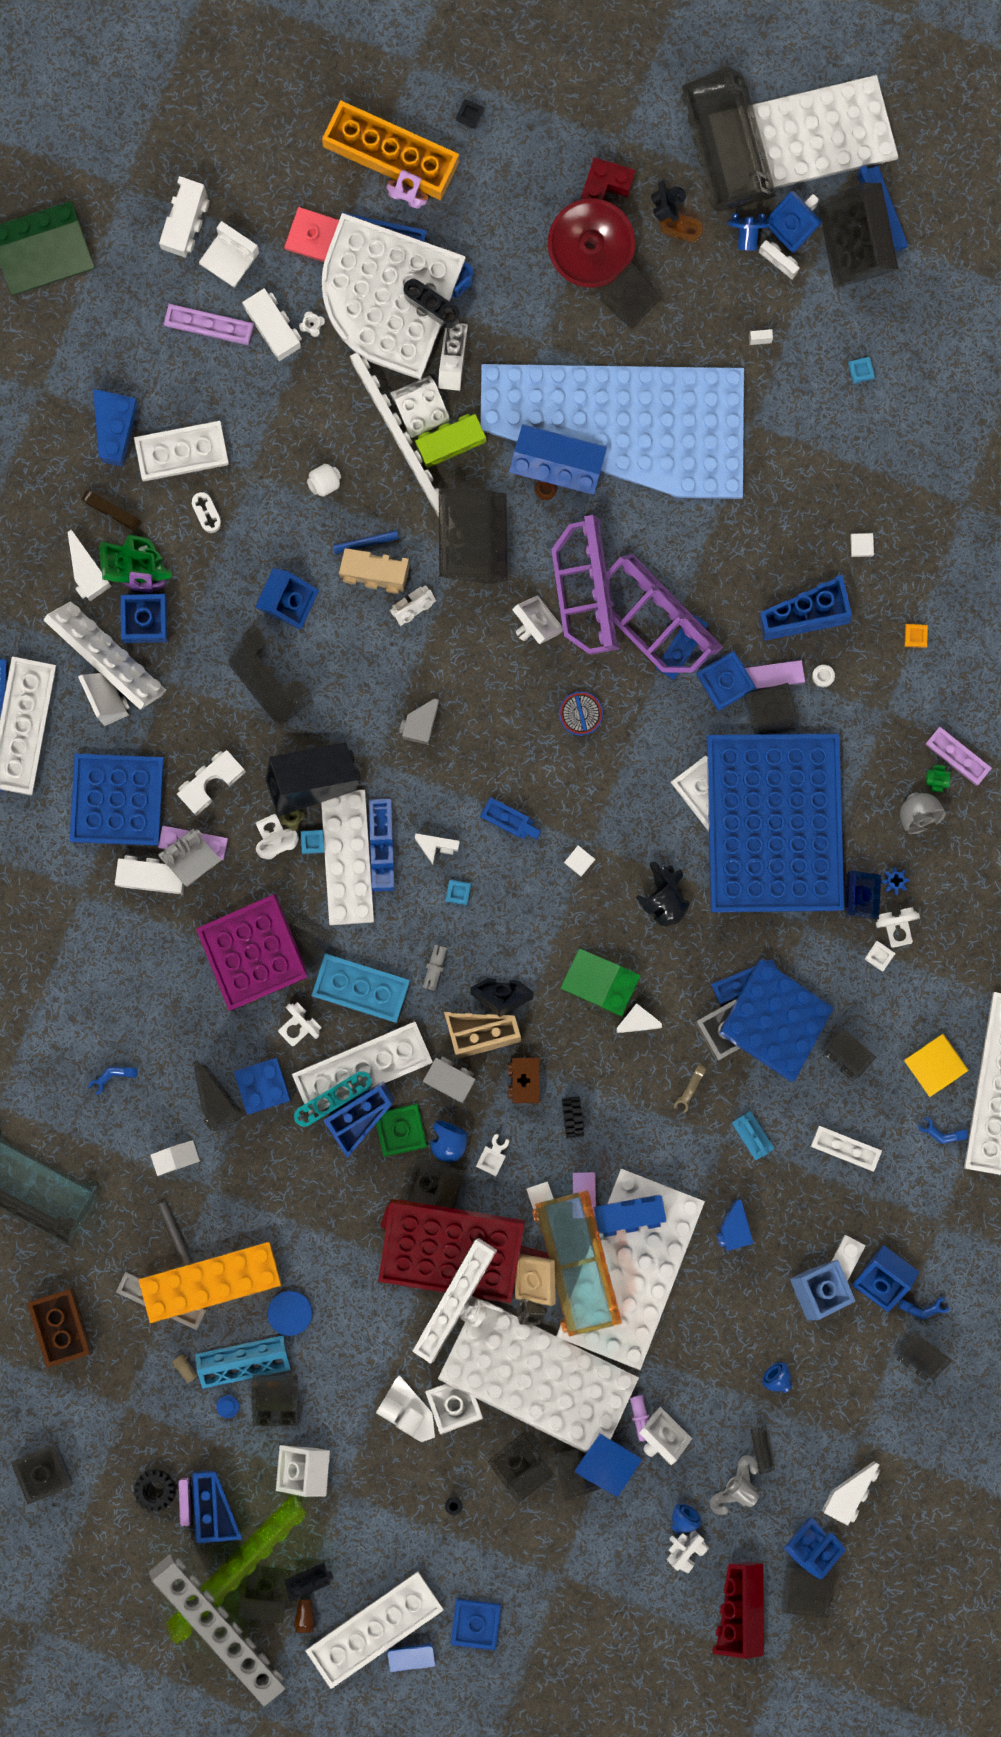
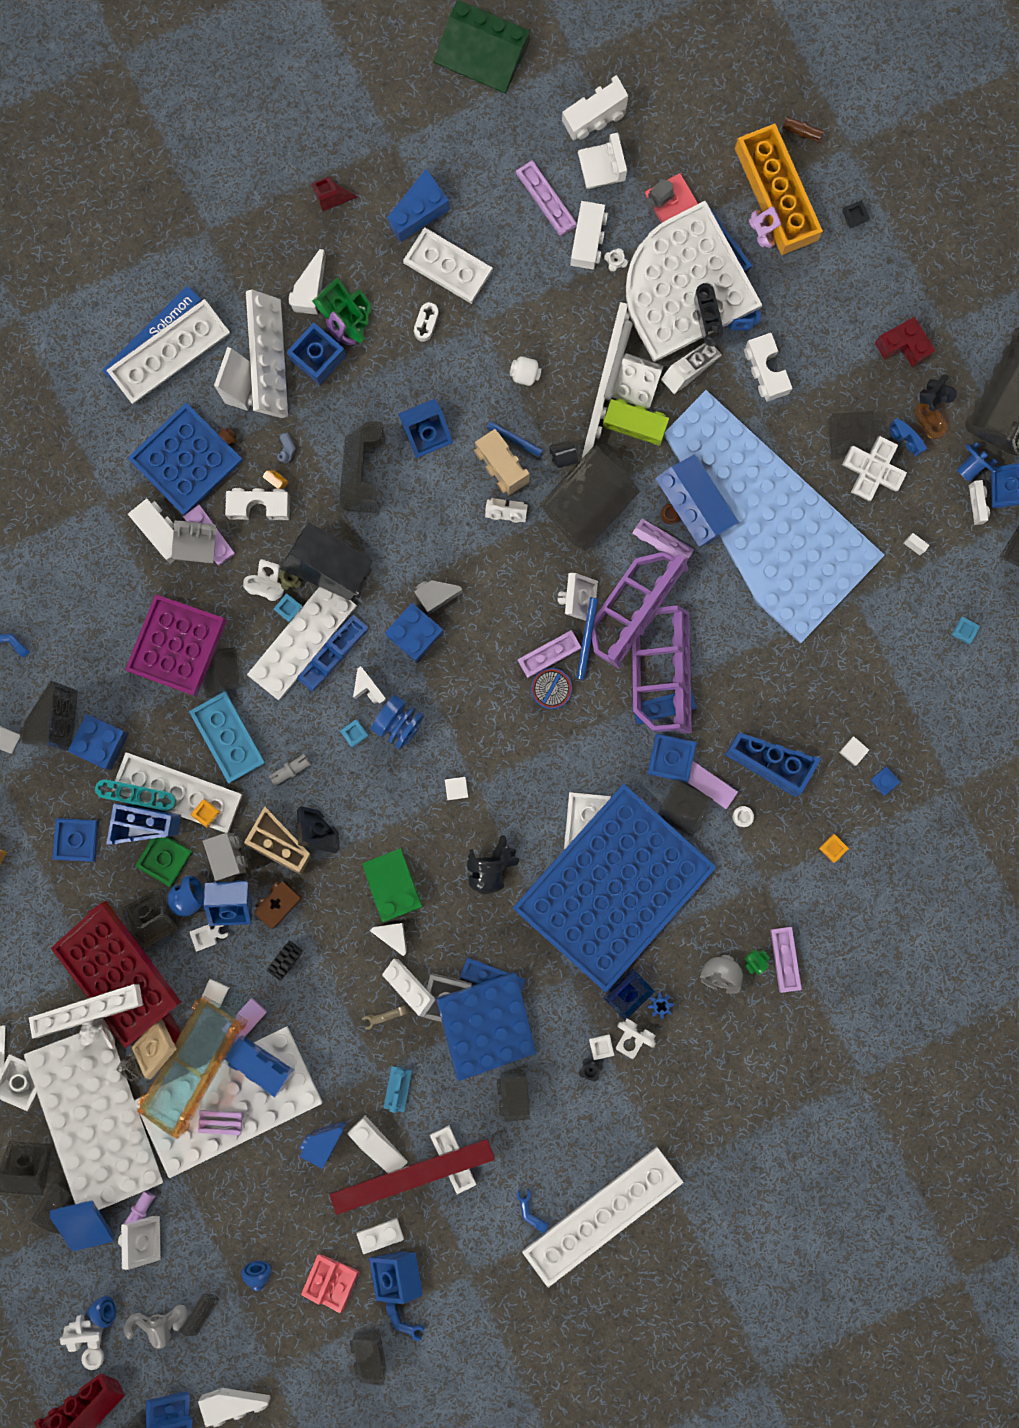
camera: 45 degrees right, 0 degrees up
(29, 478) = (330, 194): none -> dark red slope
(108, 508) = (363, 262): dark brown beam -> none
(133, 749) = (227, 435): none -> reddish brown plate
(192, 716) = (288, 450): none -> sand blue arm
(206, 748) = (276, 479): none -> light orange tile
(298, 1017) = (167, 731): white bracket -> none
(300, 239) = (660, 194): none -> dark grey arm
(316, 1180) = (75, 840): none -> blue tile
(364, 82) = (803, 129): none -> reddish brown pin
(391, 404) = (618, 360): none -> light grey bar
(401, 1062) = (205, 813): none -> light orange tile
(419, 519) = (563, 454): none -> black beam
(432, 769) = (414, 633): none -> blue brick
(486, 850) = (397, 722): none -> blue wheel
(487, 1113) = (228, 903): none -> blue brick
(509, 819) = (434, 716): blue hinge -> none
(529, 312) = (771, 383): none -> white arch
(553, 688) = (549, 654): none -> lavender plate
(559, 516) = (661, 540): none -> lavender plate
(572, 647) = (587, 638): none -> blue bar
(591, 242) = (858, 373): dark red dish -> none
(654, 1276) = (202, 1113): none -> lavender tile
(666, 258) = (902, 431): none -> blue slope
(673, 307) = (874, 468): none -> white plate
(688, 1047) = (408, 987): none -> white plate
(711, 1562) = (92, 1358): none -> white tile
(778, 1193) = (376, 1145): none -> white slope
(822, 1290) = (343, 1244): medium blue slope -> none
(826, 1190) = (412, 1176): none -> dark red tile
(841, 1333) = (330, 1283): none -> coral slope
(893, 981) = (590, 1075): none -> black plate
(907, 546) = (885, 781): none -> blue plate
(936, 1065) = (570, 1160): yellow slope -> none

